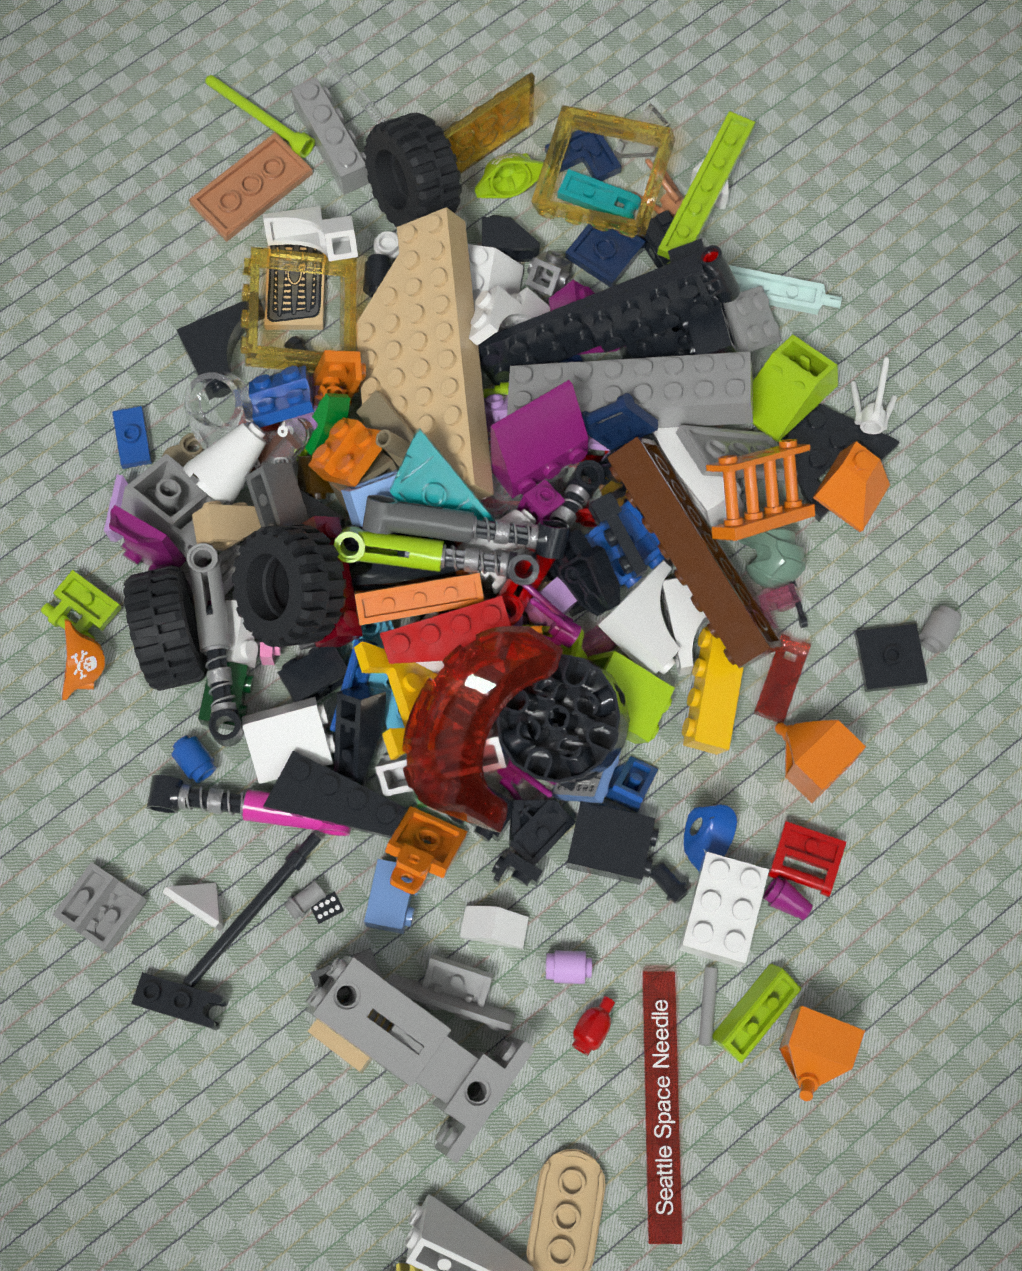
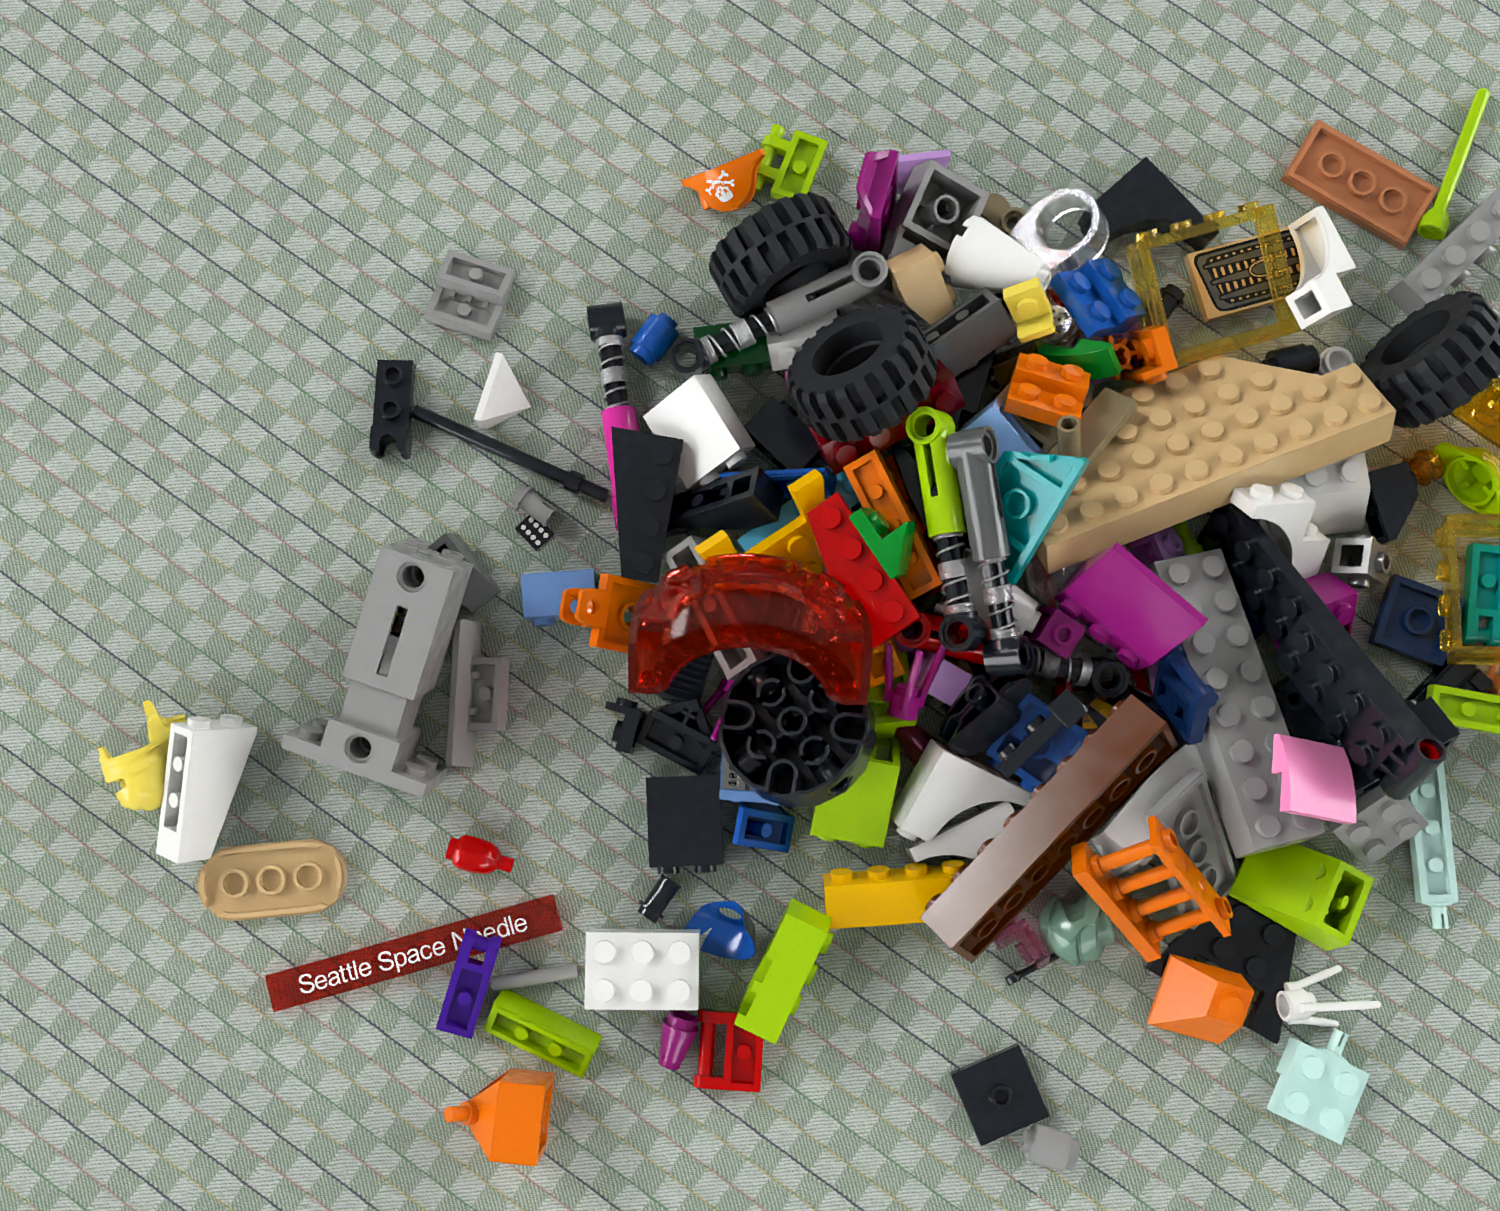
camera: 75 degrees right, 10 degrees up
(132, 437) = (1004, 154): blue plate -> none
(277, 446) = (1030, 310): none -> light yellow bracket
(440, 603) = (890, 549): none -> green slope
(488, 206) = (1426, 466): none -> clear orange plate
(494, 926) = (559, 717): white slope -> none
(568, 967) = (534, 810): lavender brick -> none
(700, 1061) = (468, 984): none -> dark purple plate
(709, 344) = (1314, 779): none -> bright pink slope
(753, 791) = (784, 970): none -> lime wedge
(781, 680) = (933, 970): clear red plate -> none
(817, 754) = (850, 1035): orange piece -> none
(938, 422) = (1318, 1087): none -> light aqua plate

